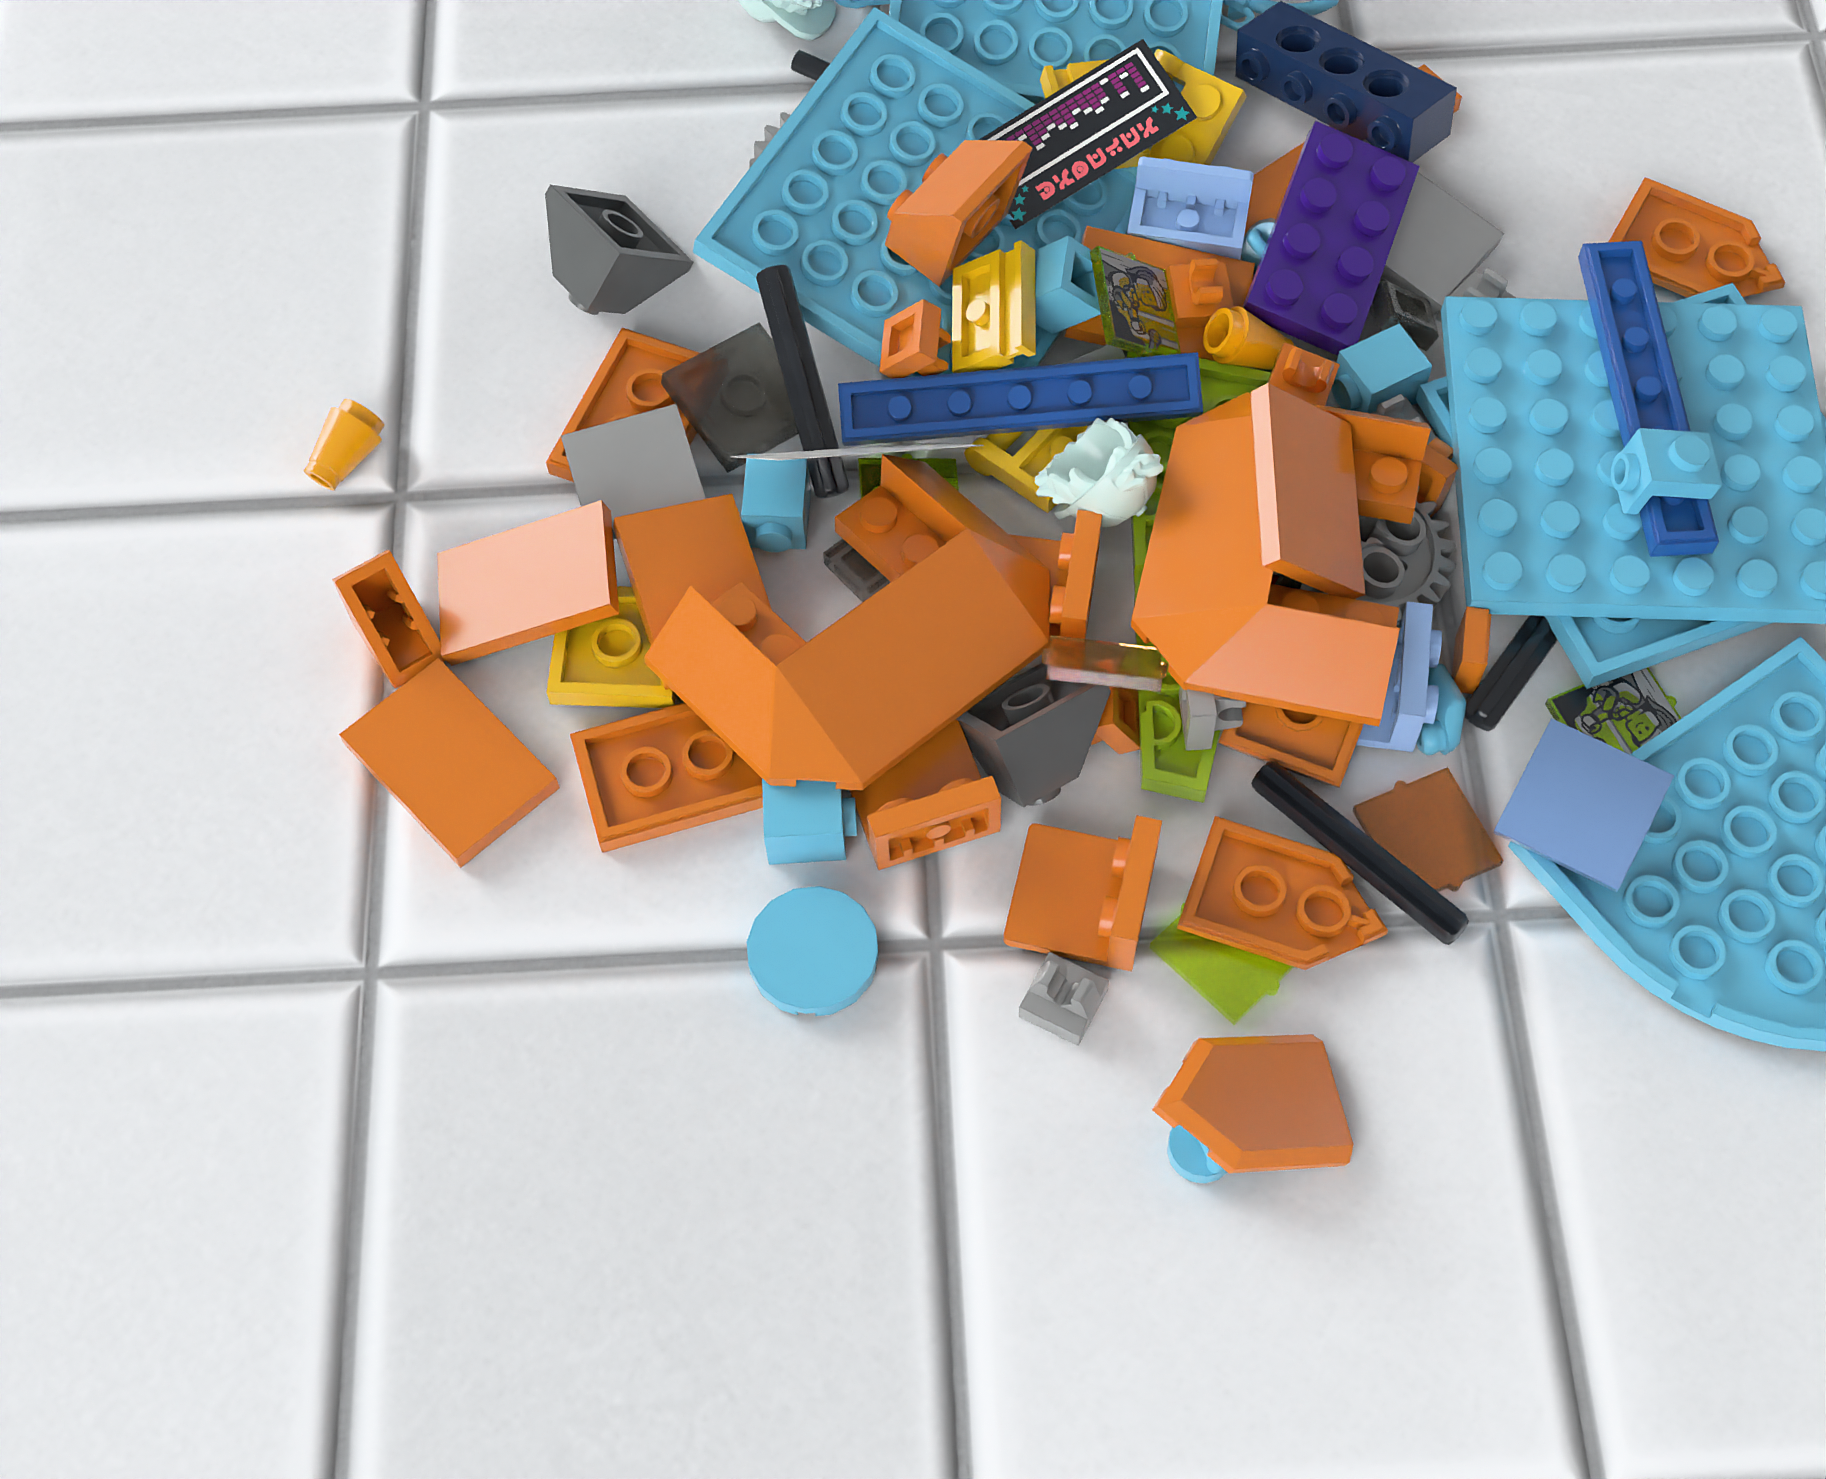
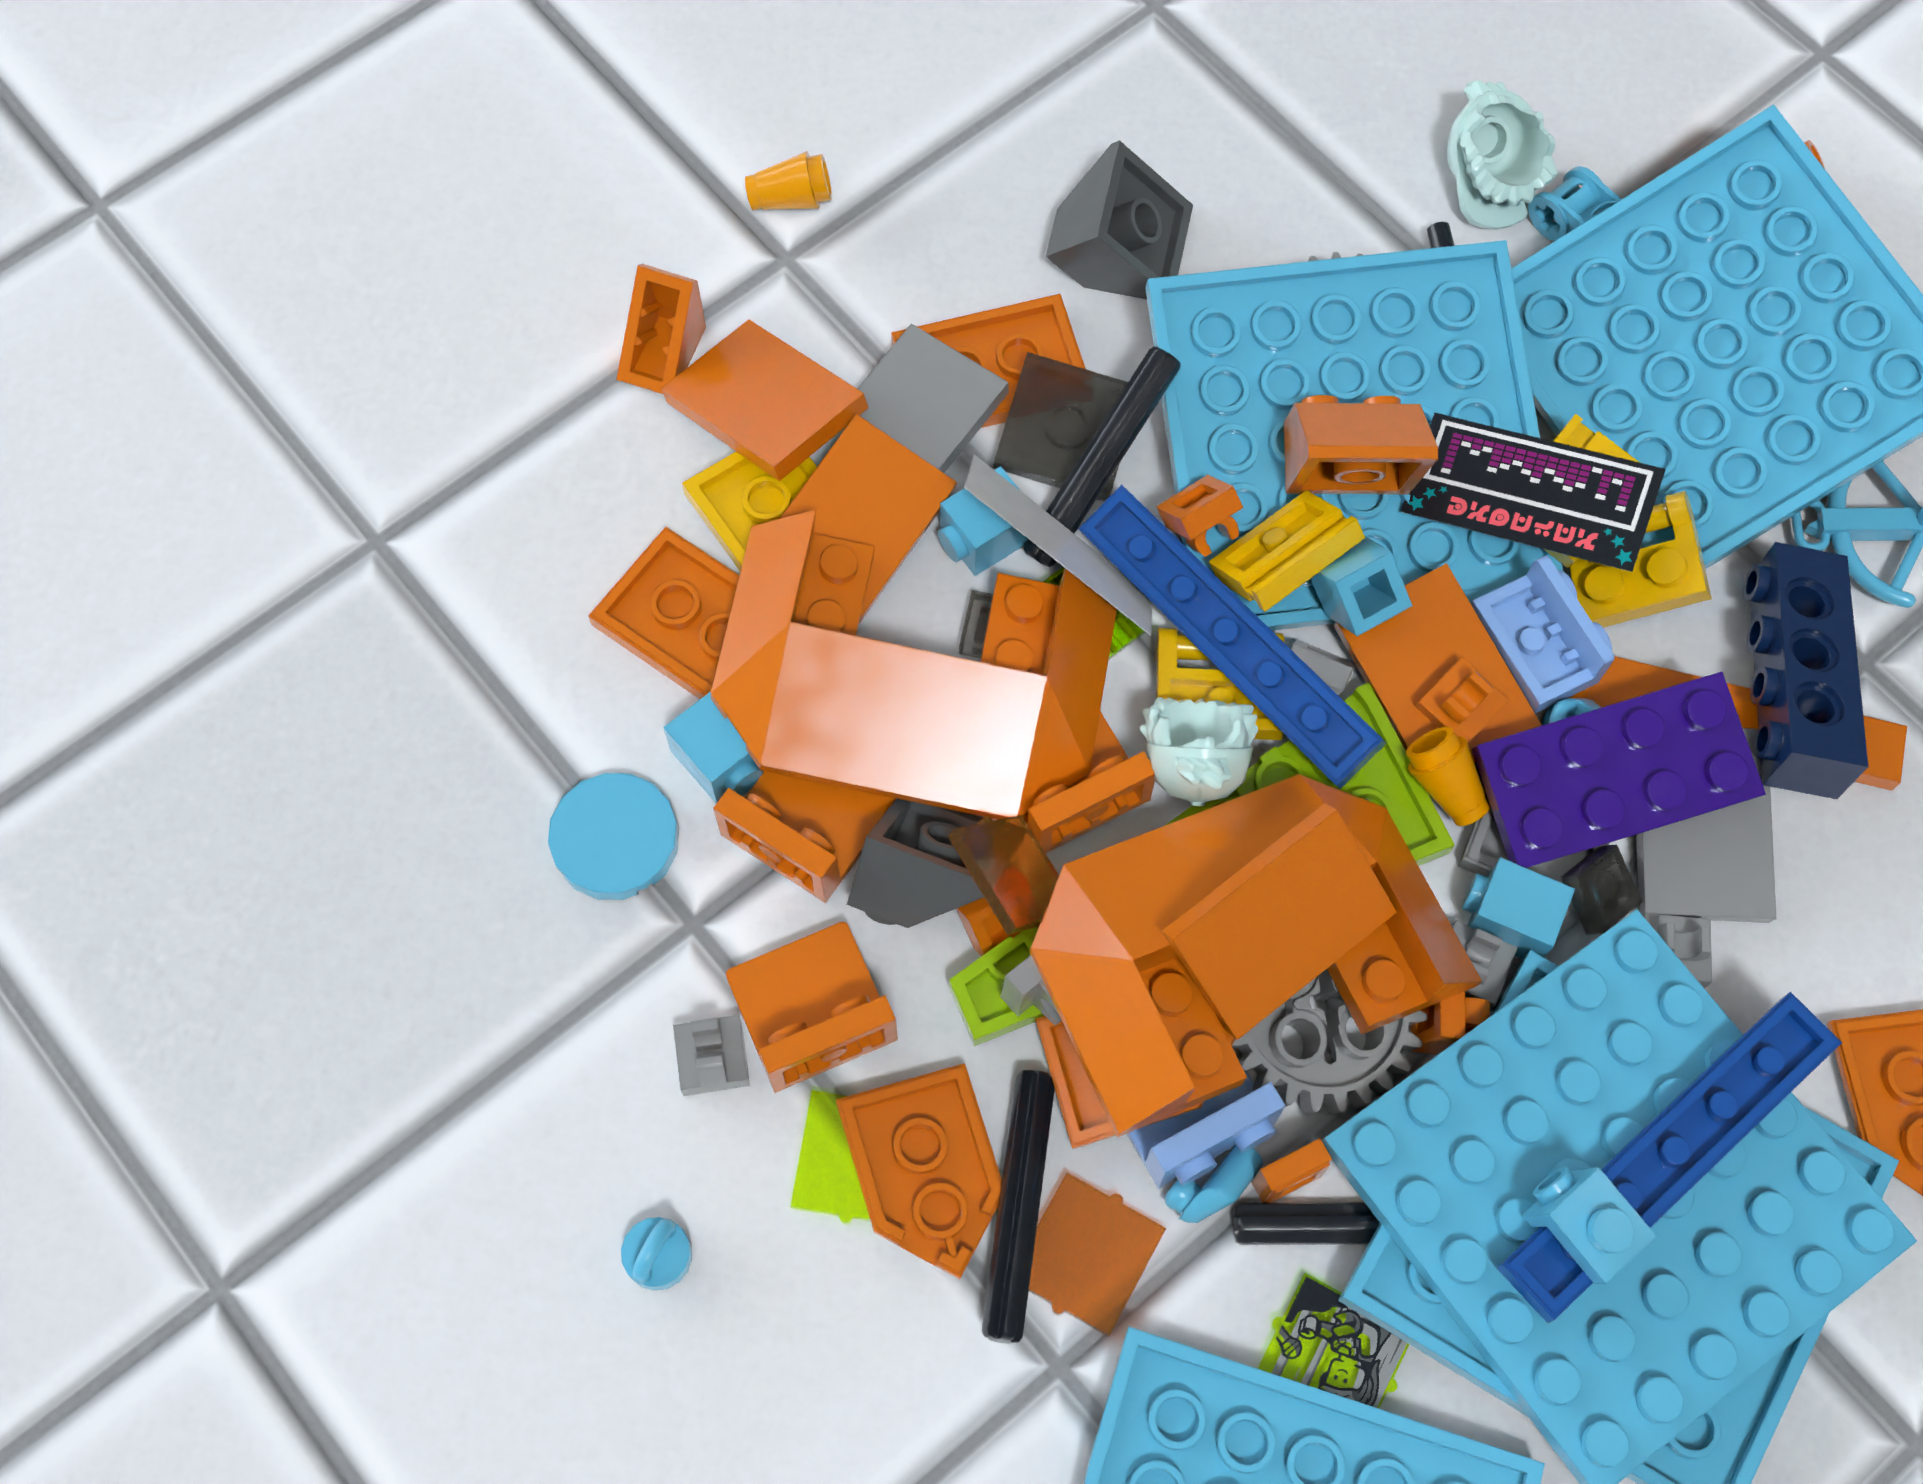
camera: 50 degrees right, 5 degrees up
(449, 762) = (581, 462): orange tile -> none
(1134, 304) = (1391, 658): piece -> none
(1260, 1103) = (714, 1272): orange tile -> none
(1303, 374) = (1443, 844): orange tile -> none
(1584, 805) = (1196, 1368): medium blue slope -> none

